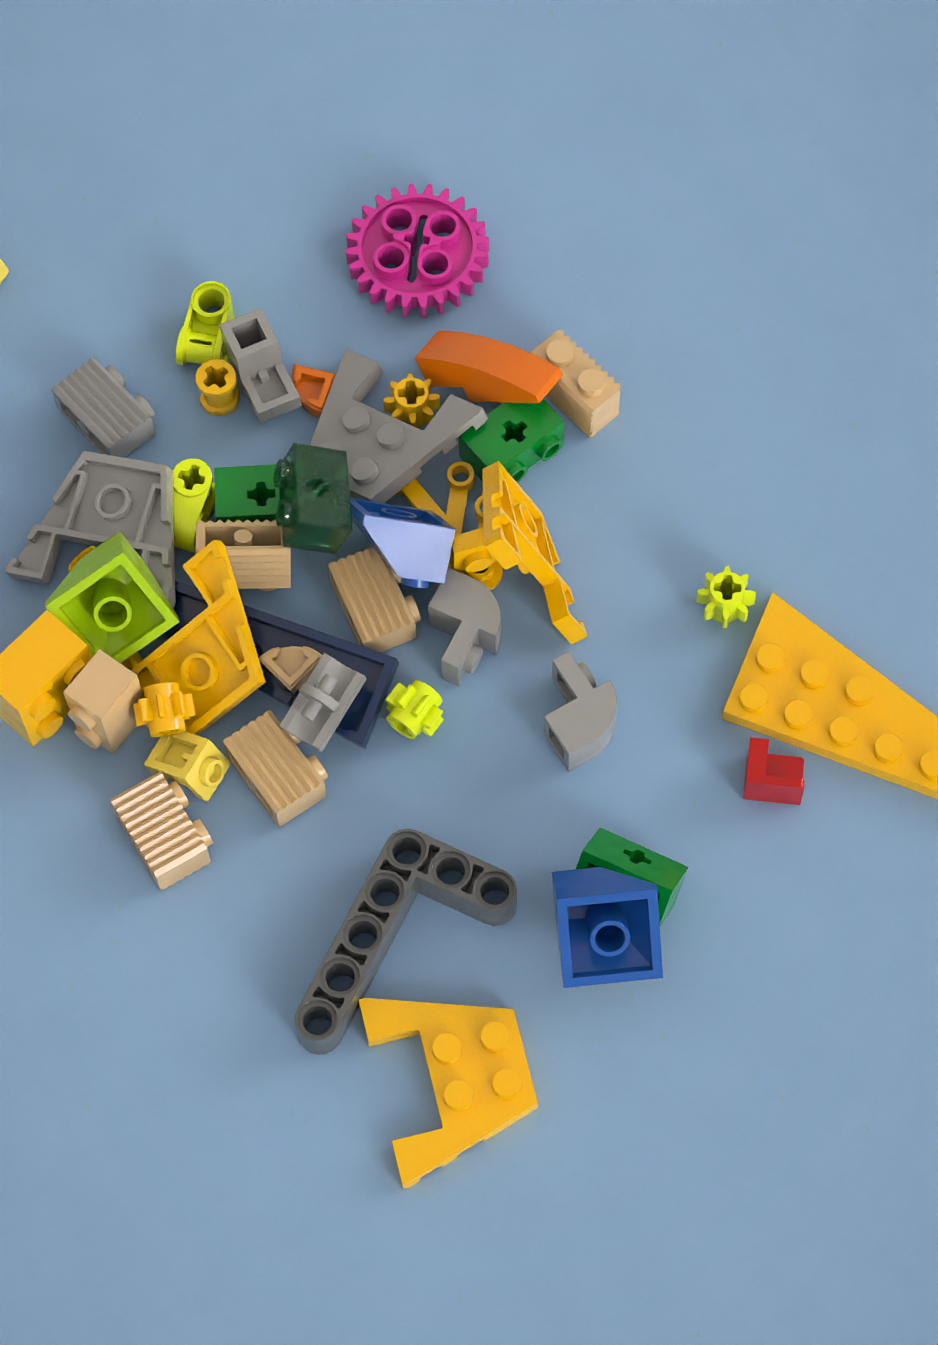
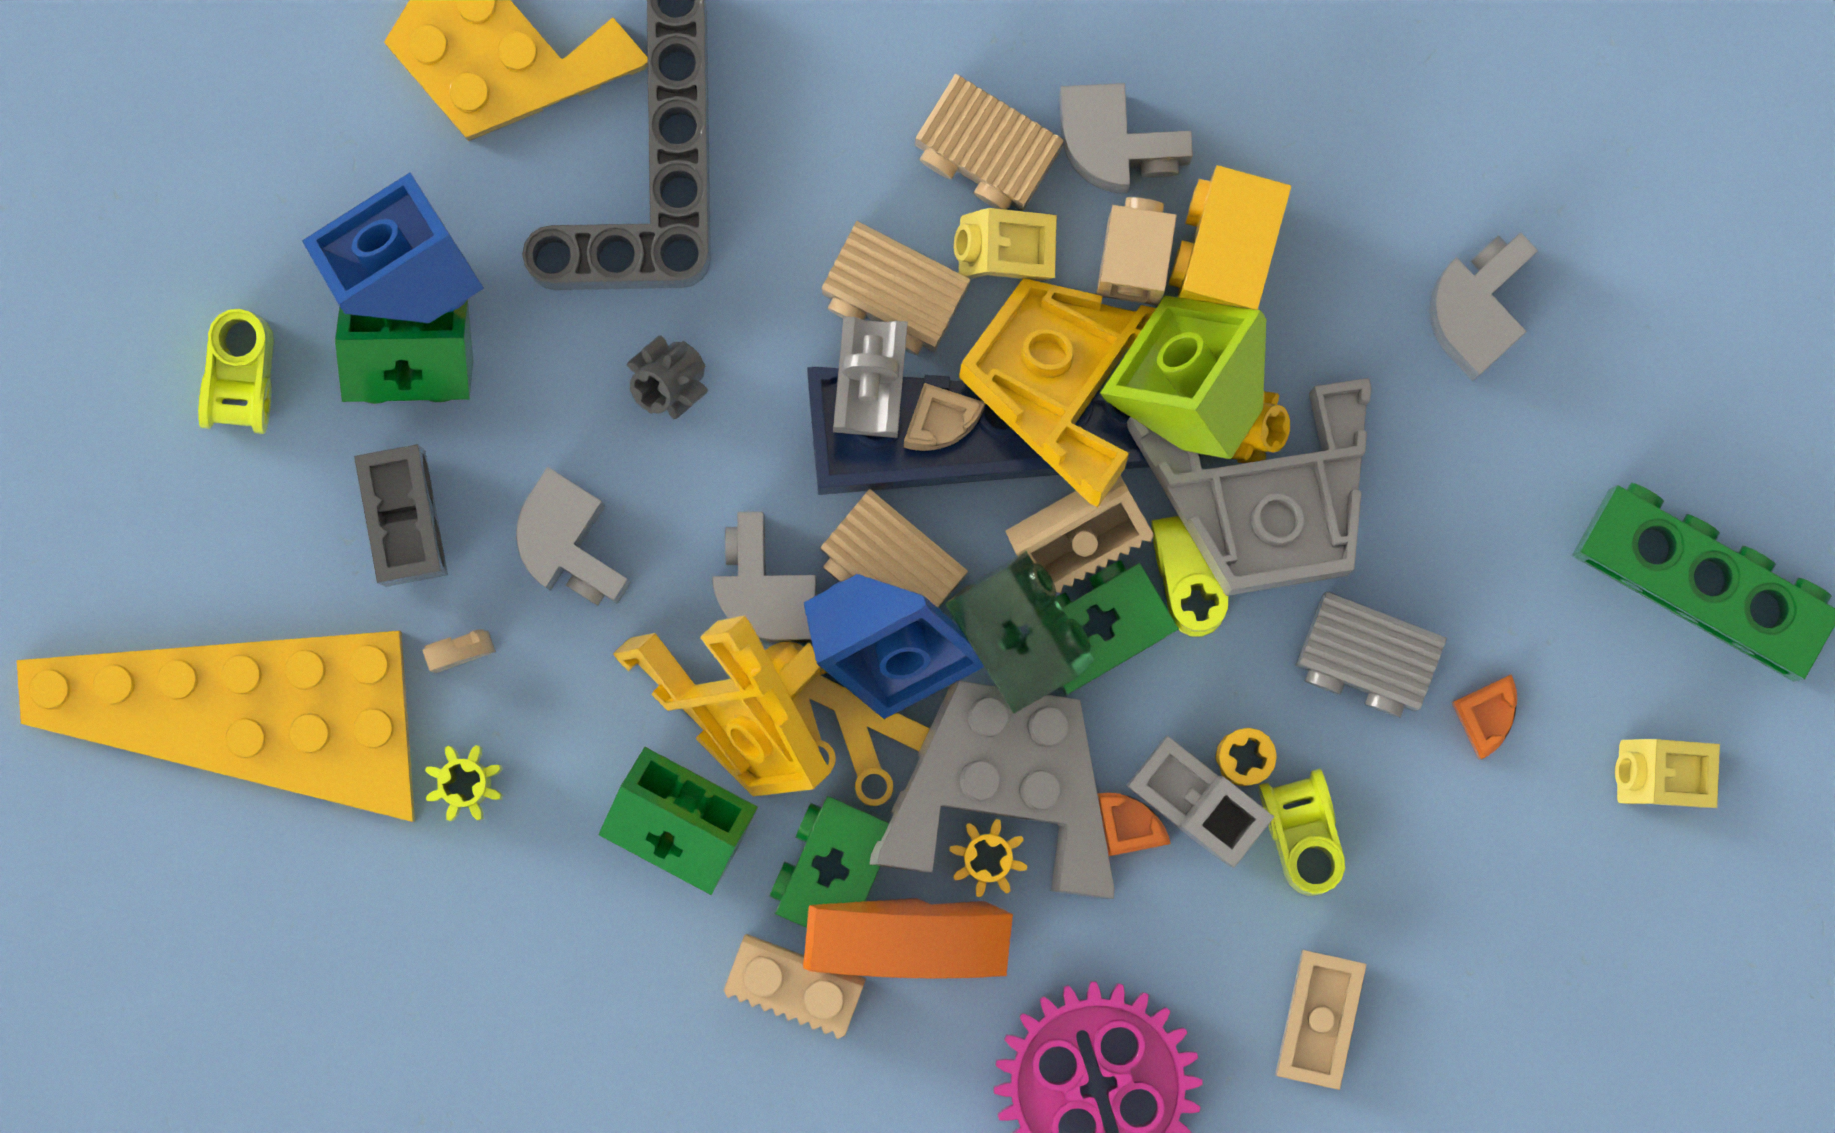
camera: 150 degrees right, 20 degrees up
(55, 352) = (1488, 715): none -> orange tile
(84, 791) = (1098, 141): none -> light grey brick
(164, 709) = (1059, 279): yellow gear -> none
(260, 228) = (1320, 1019): none -> tan plate
(414, 709) = (767, 442): neon yellow gear -> none
(458, 781) = (667, 377): none -> dark grey gear
(597, 506) = (677, 820): none -> green brick
(684, 773) = (401, 515): none -> dark grey brick
(689, 680) = (454, 652): none -> tan tile
(754, 920) = (237, 377): none -> neon yellow piece
(772, 775) = (300, 580): red panel -> none

